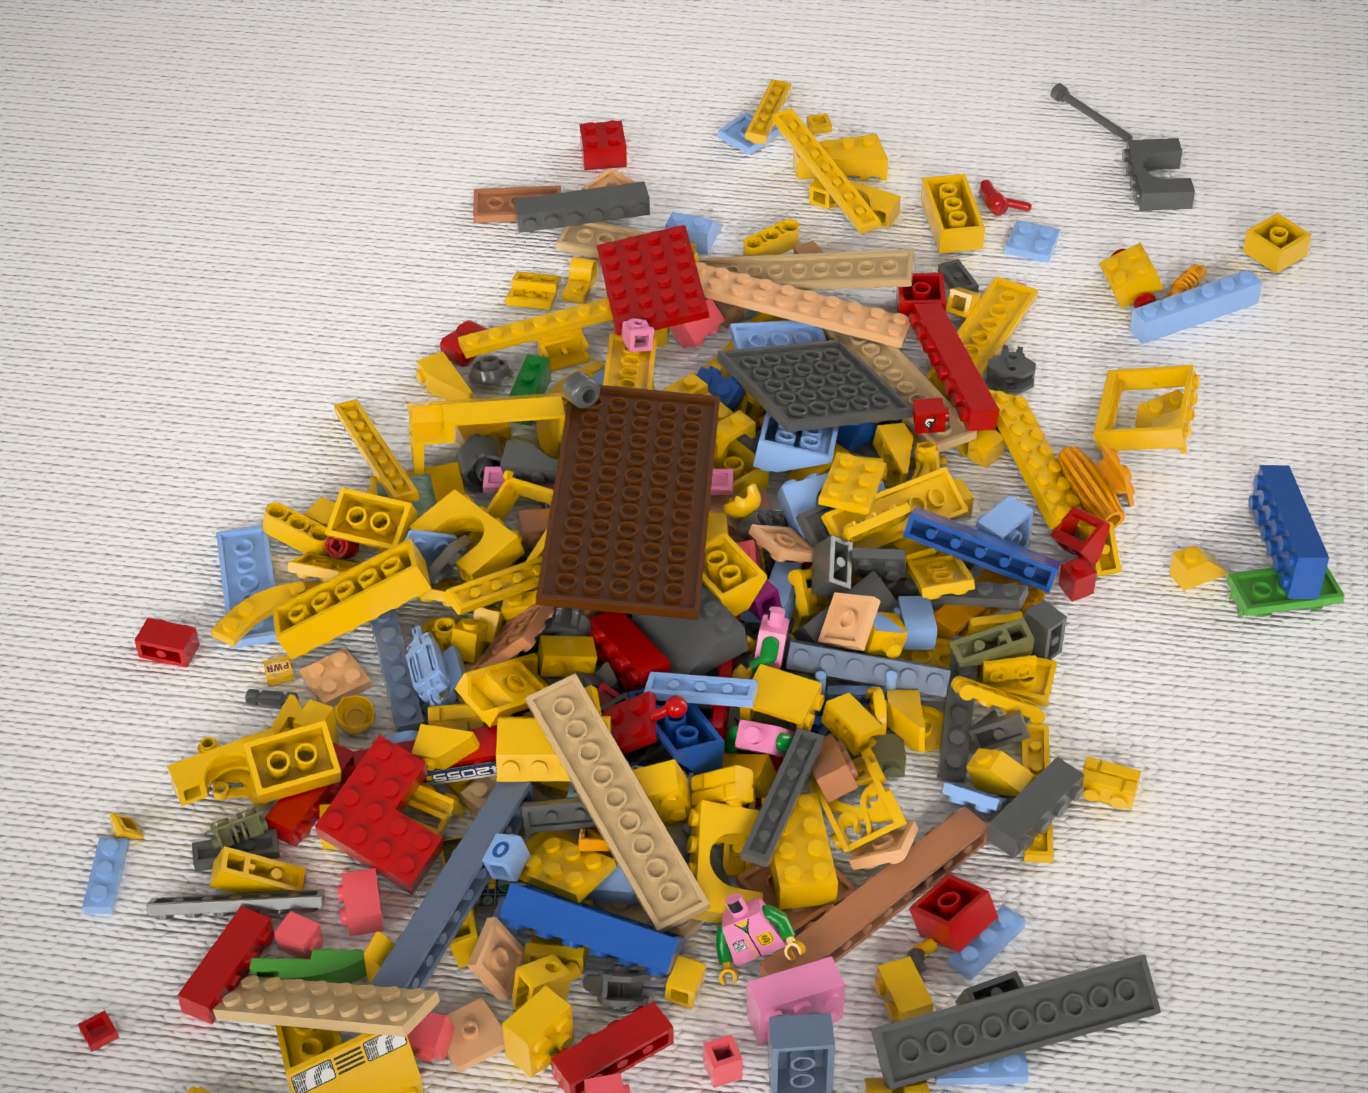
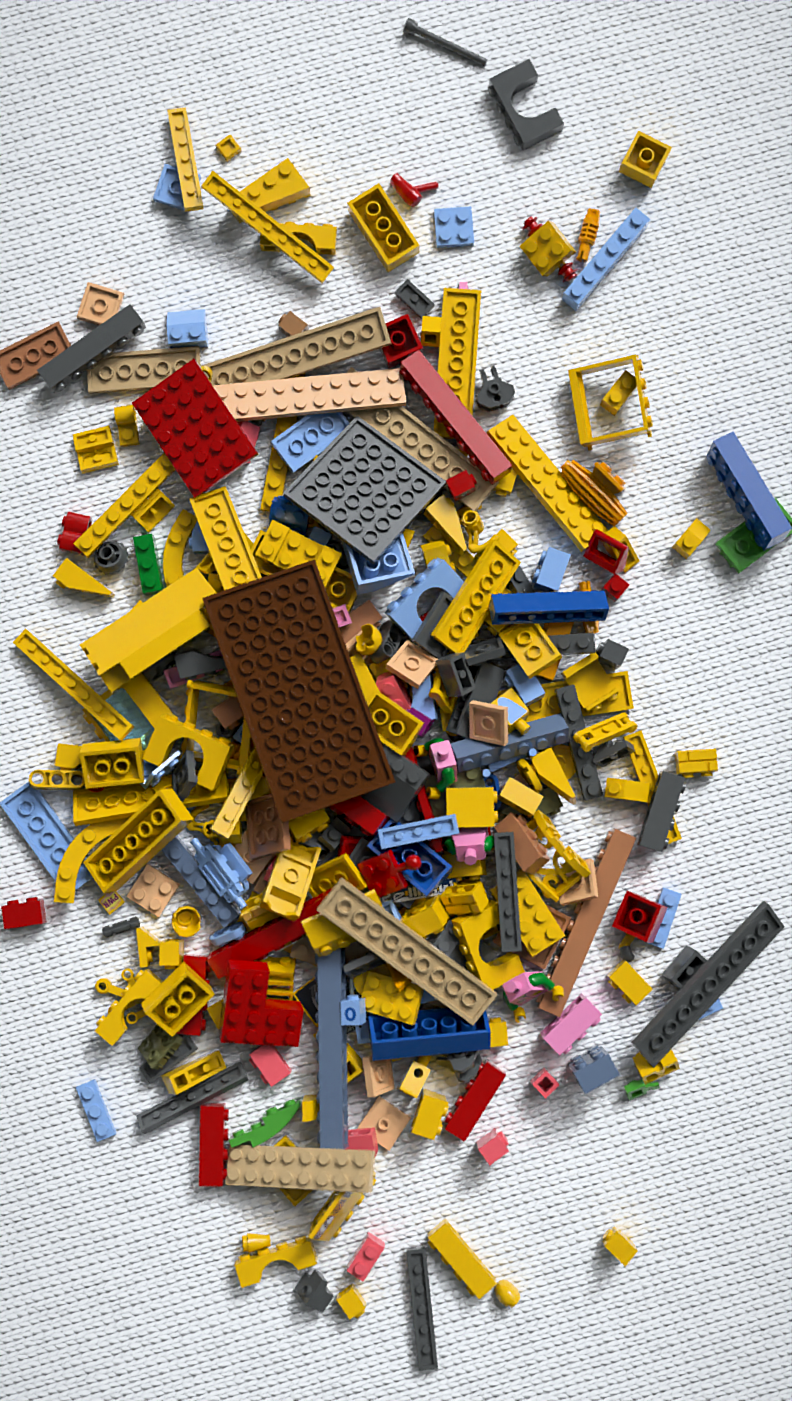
camera: 25 degrees left, 40 degrees up
(98, 1031) = (161, 1222): red plate -> none
(125, 827) = (87, 1071): yellow slope -> none
(298, 936) = (246, 1105): coral brick -> none
(443, 746) = (268, 945): yellow slope -> none
(581, 390) = (217, 611): dark grey head -> none
(603, 145) = (68, 256): red brick -> none
(637, 329) = (213, 503): bright pink brick -> none
(773, 240) = (255, 310): yellow beam -> none
(852, 483) = (441, 596): yellow plate -> none
(875, 523) = (470, 626): yellow plate -> none
(963, 795) = (617, 816): light blue plate -> none
(996, 643) = (587, 692): olive slope -> none

